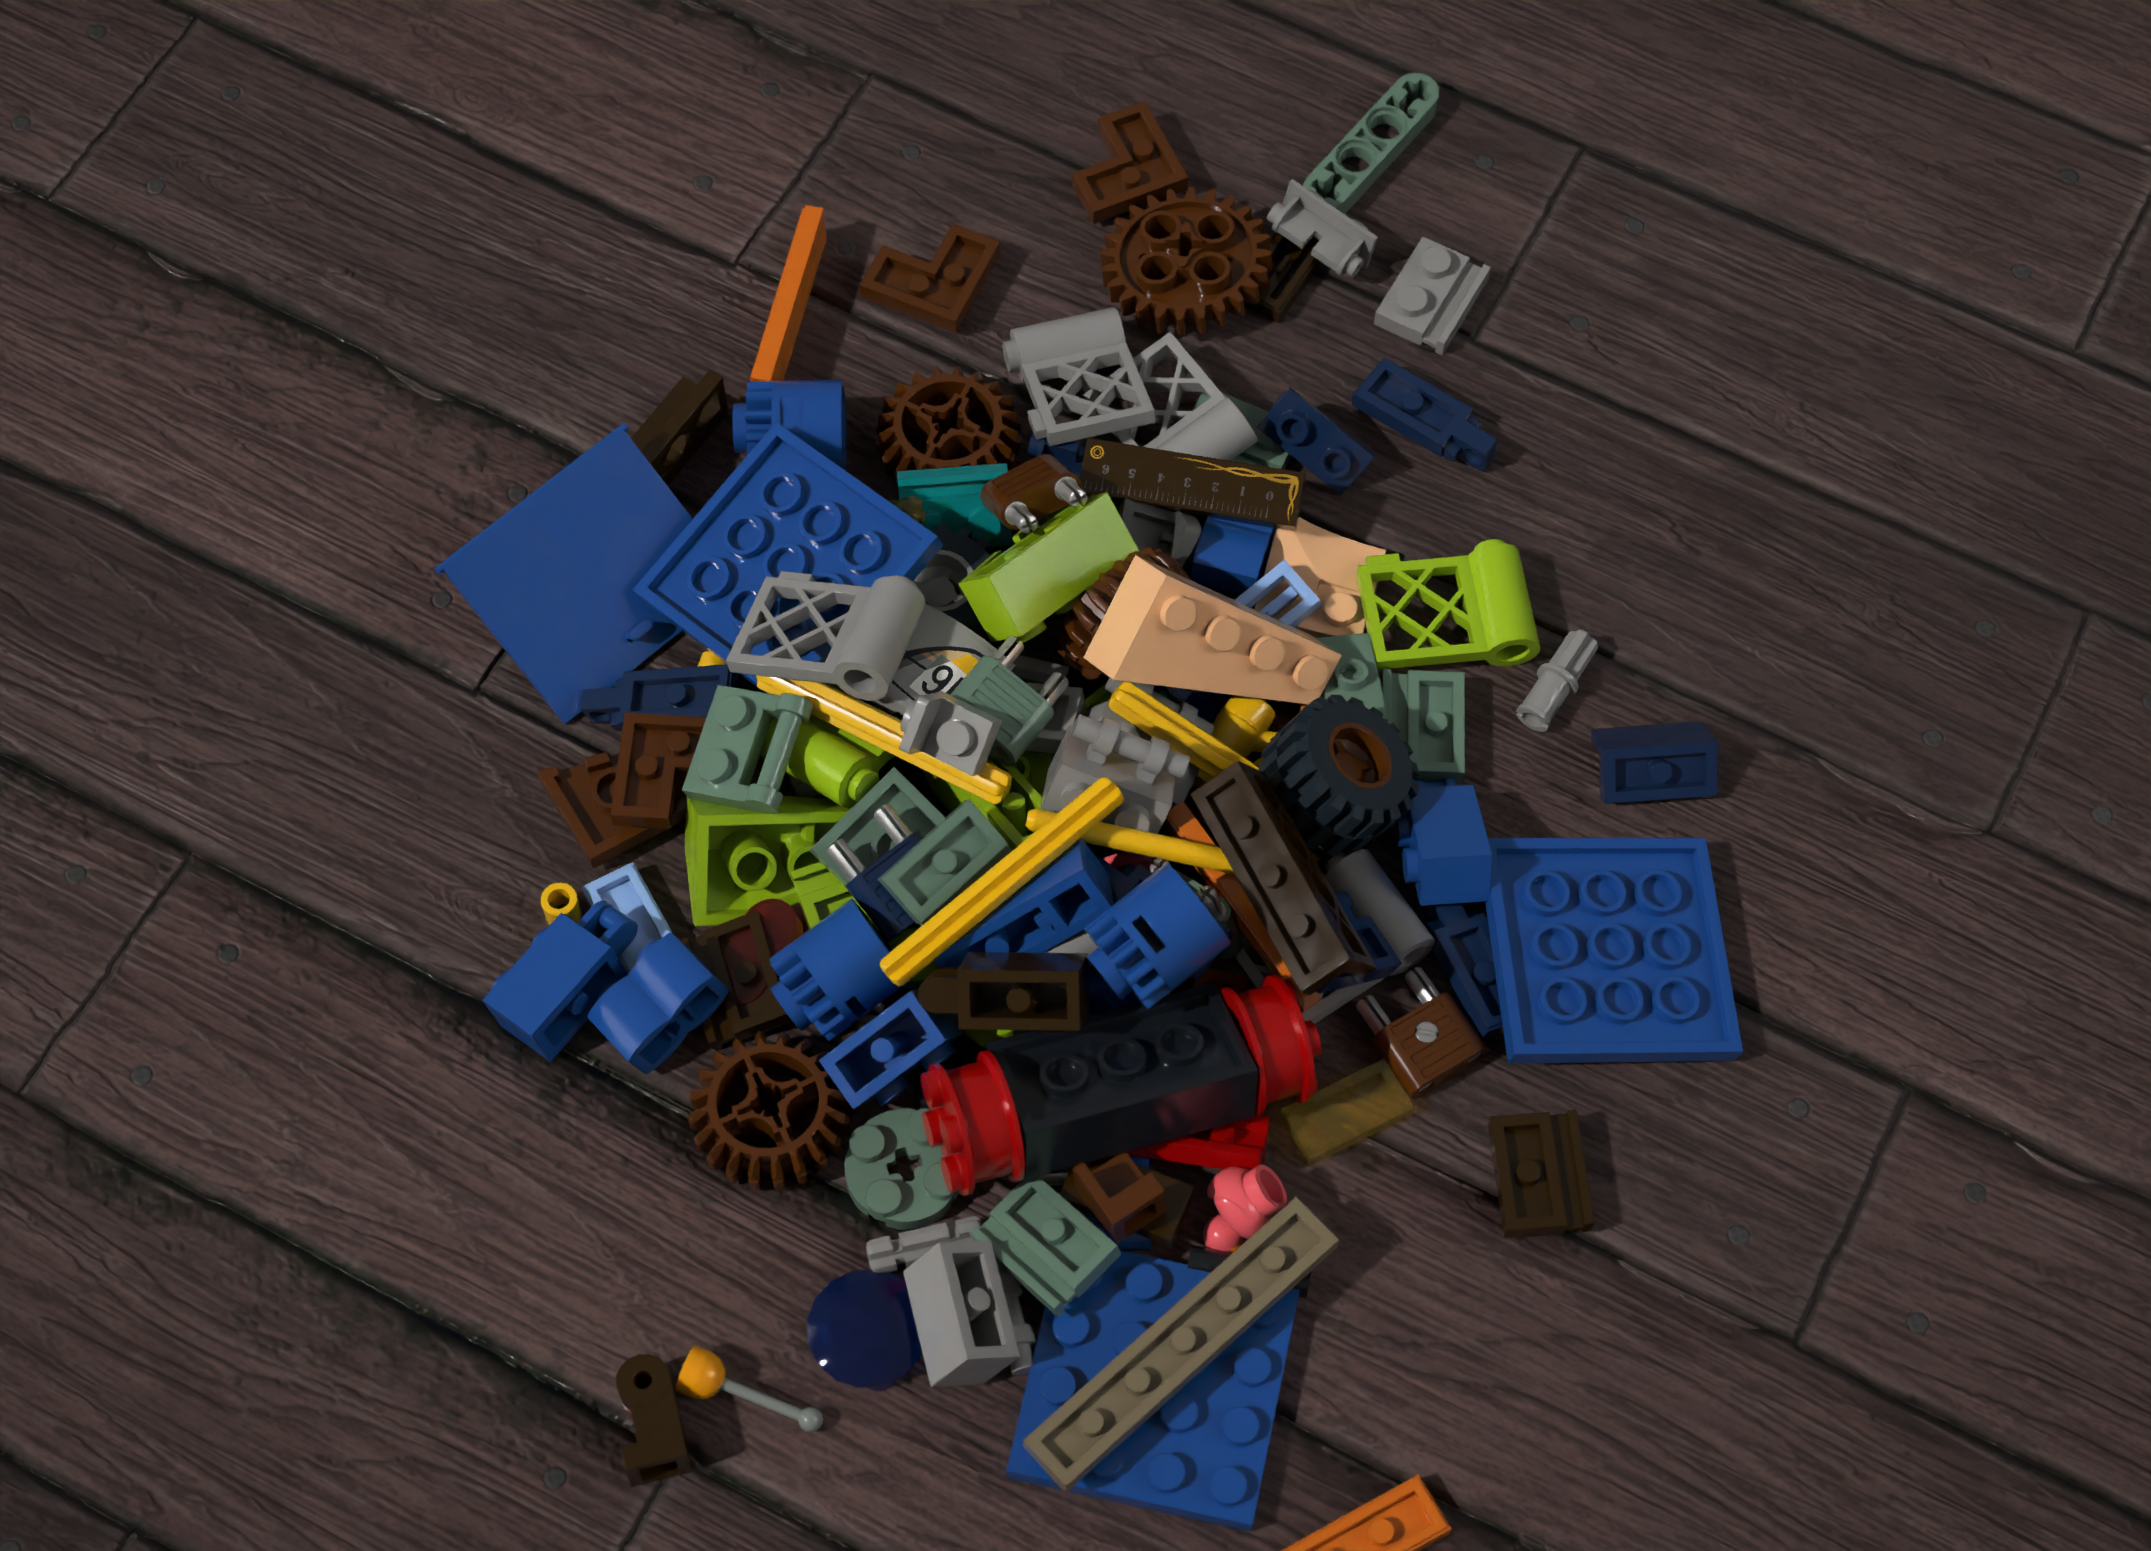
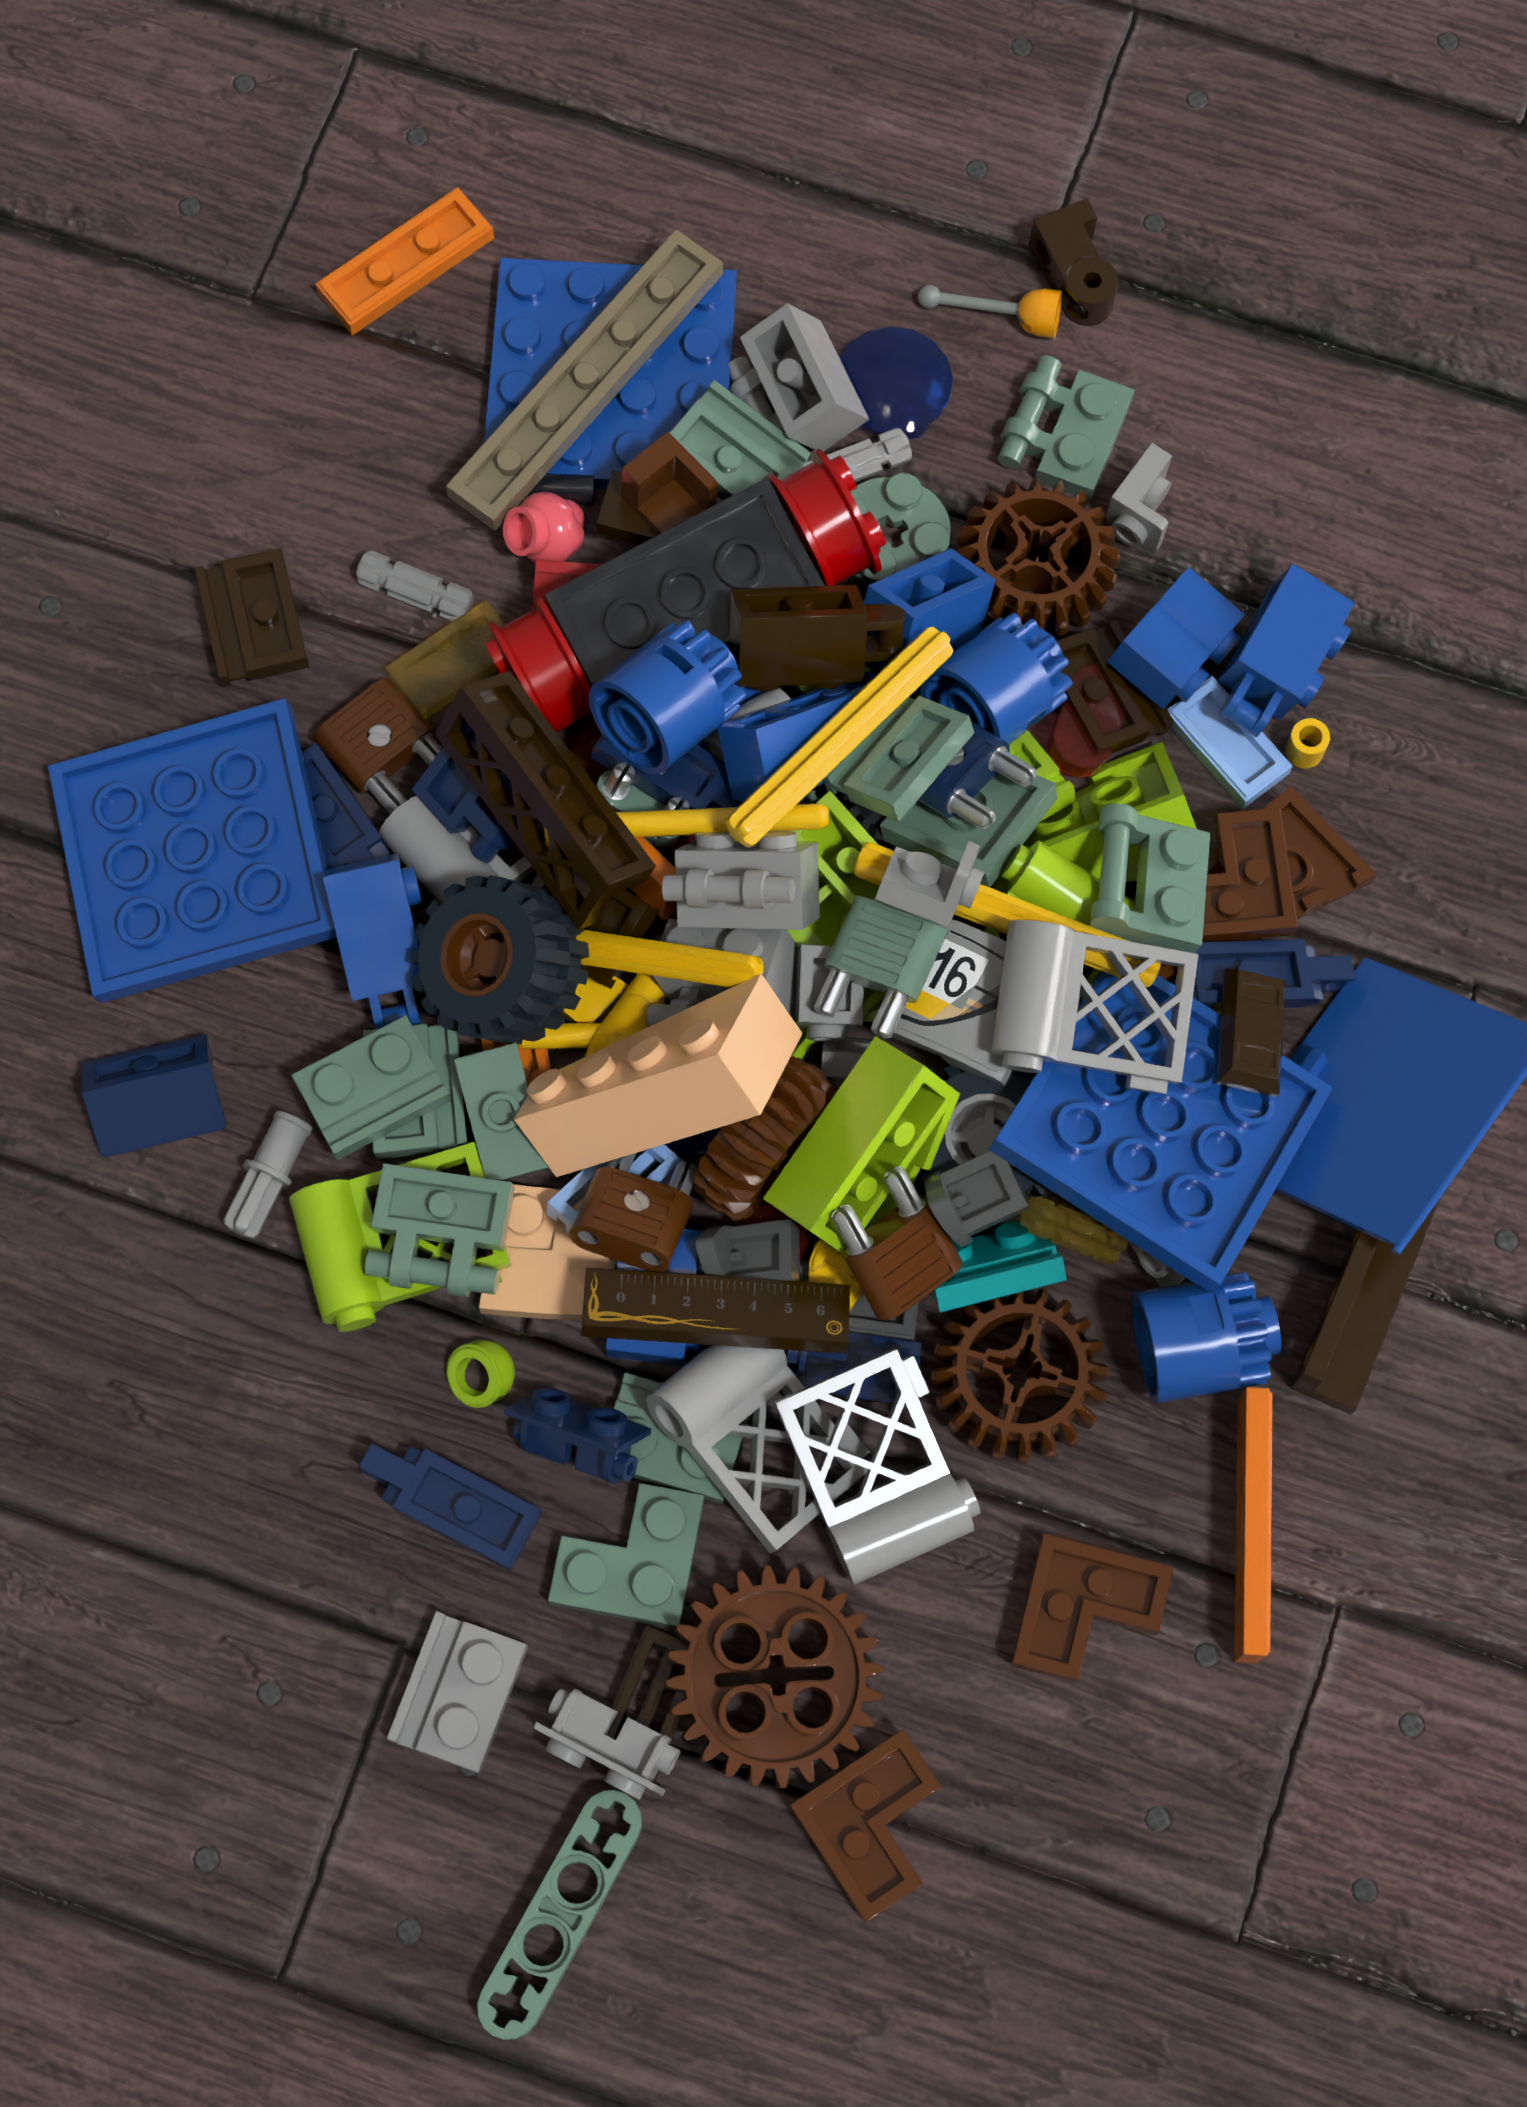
camera: 170 degrees right, 10 degrees up
(653, 1162) = (1136, 500): none -> light grey bracket
(690, 1244) = (1083, 434): none -> sand green plate
(691, 631) = (1251, 1032): none -> dark brown tile
(965, 525) = (974, 1196): none -> dark grey tile
(1251, 563) = (634, 1216): none -> reddish brown piece
(1283, 348) = (639, 1581): none -> sand green plate
(1378, 1186) = (413, 586): none -> light grey axle
(1384, 520) = (498, 1366): none -> lime piece
(1410, 597) = (445, 1210): none -> sand green plate
(1462, 716) = (371, 1087): none -> sand green plate

